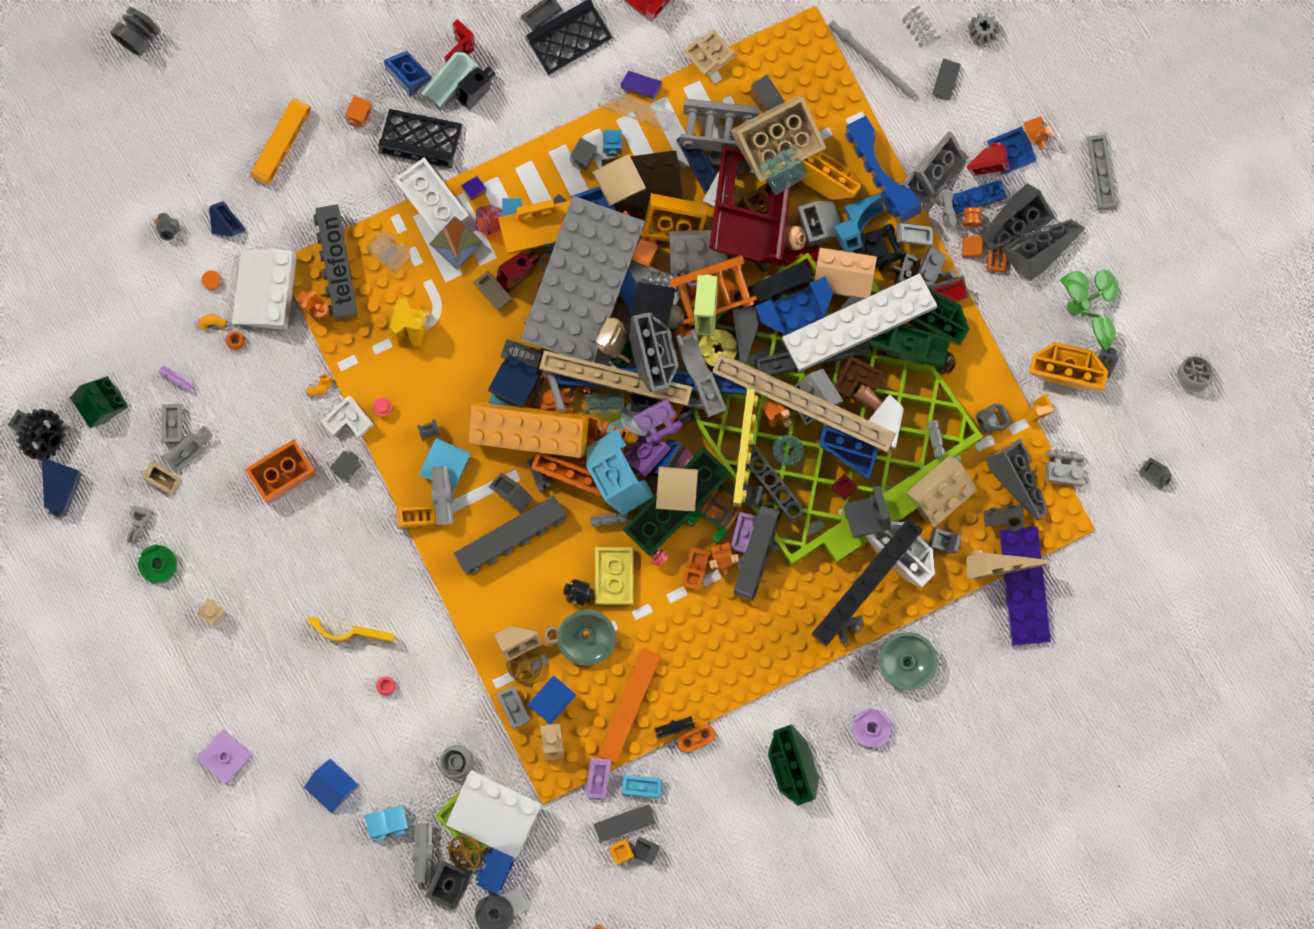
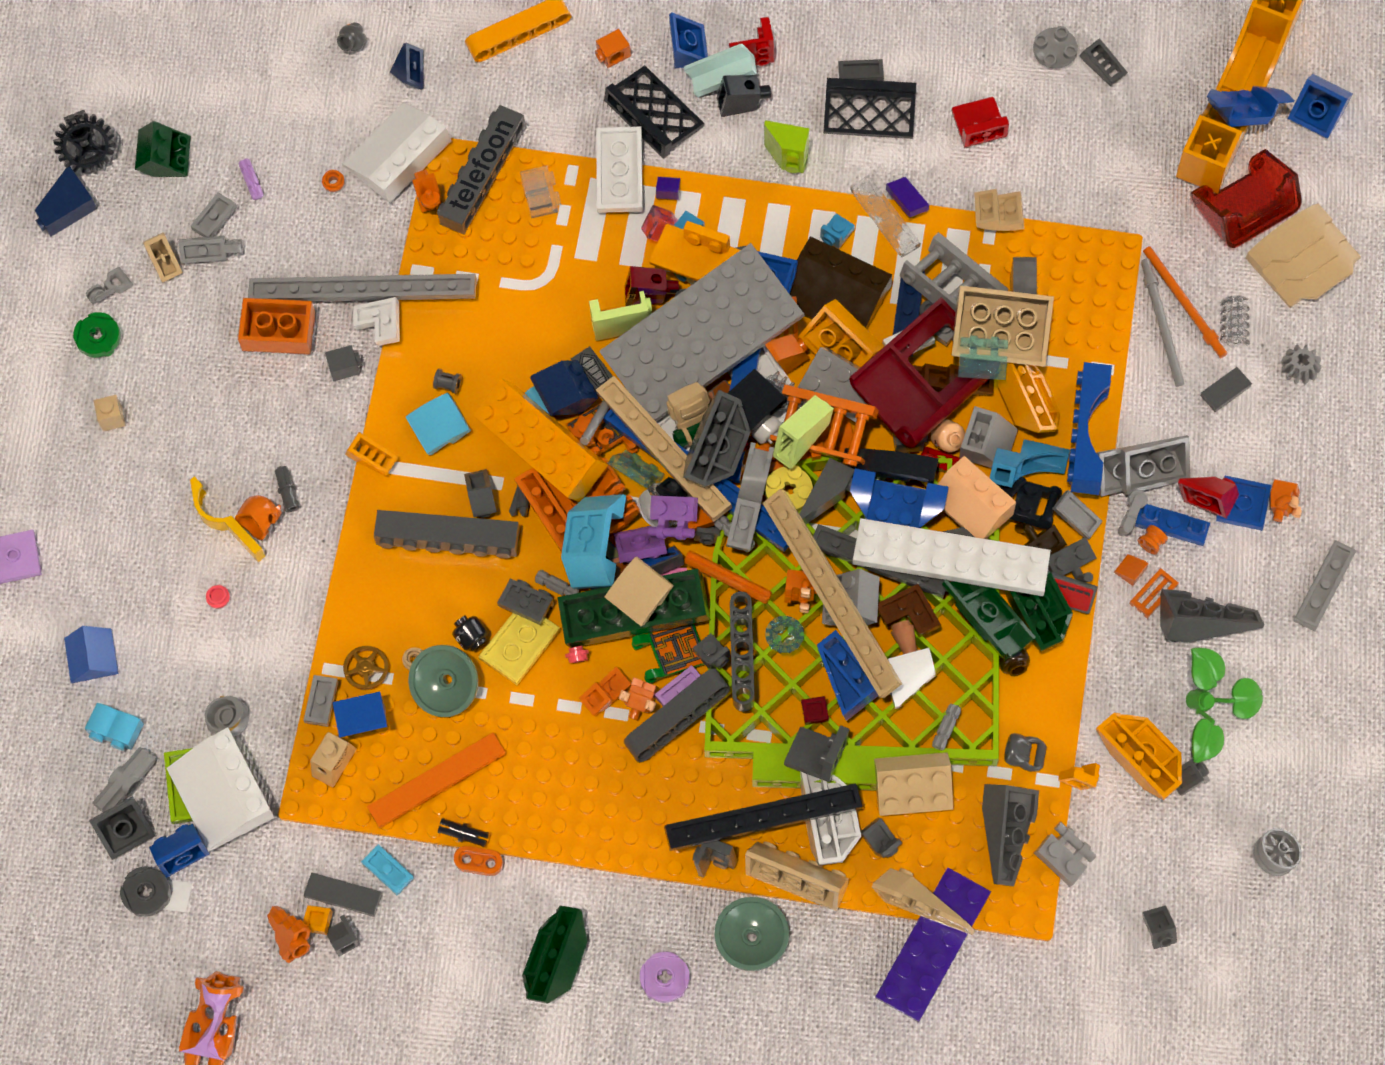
camera: 40 degrees right, 10 degrees down
(211, 280) = (354, 112): orange tile -> none
(211, 319) = (327, 147): light orange arm -> none
(318, 404) = (365, 287): none -> light grey plate
(321, 388) = (386, 270): light orange arm -> none
(371, 612) = (257, 515): none -> orange helmet
(374, 580) = (286, 489): none -> dark grey axle
(382, 407) = (420, 331): coral plate -> none
(408, 322) = (505, 266): yellow piece -> none
(442, 495) = (411, 449): light grey piece -> none
(455, 242) = (609, 224): tile -> none
(465, 852) = (164, 809): pearl gold wheel -> none
(492, 291) = (611, 290): dark tan tile -> none
(517, 308) = (619, 320): none -> yellowish green panel
(517, 641) = (372, 637): tan slope -> none
(535, 103) = (787, 145): none -> lime slope
(583, 154) = (798, 223): dark grey brick -> none
(597, 778) = (349, 828): lavender plate -> none
(599, 545) = (526, 601): none -> dark grey bracket
(611, 873) = (289, 934): none -> orange rock
(619, 180) = (811, 263): tan slope -> none
(718, 437) = (727, 577): none -> orange axle
(744, 456) = (731, 603): light yellow plate -> none
(909, 48) = (1209, 336): none -> orange bar
(910, 603) = (796, 875): none -> tan slope
(1003, 515) = (962, 855): dark grey plate -> none
(1022, 214) = (1201, 570): dark grey wedge -> none

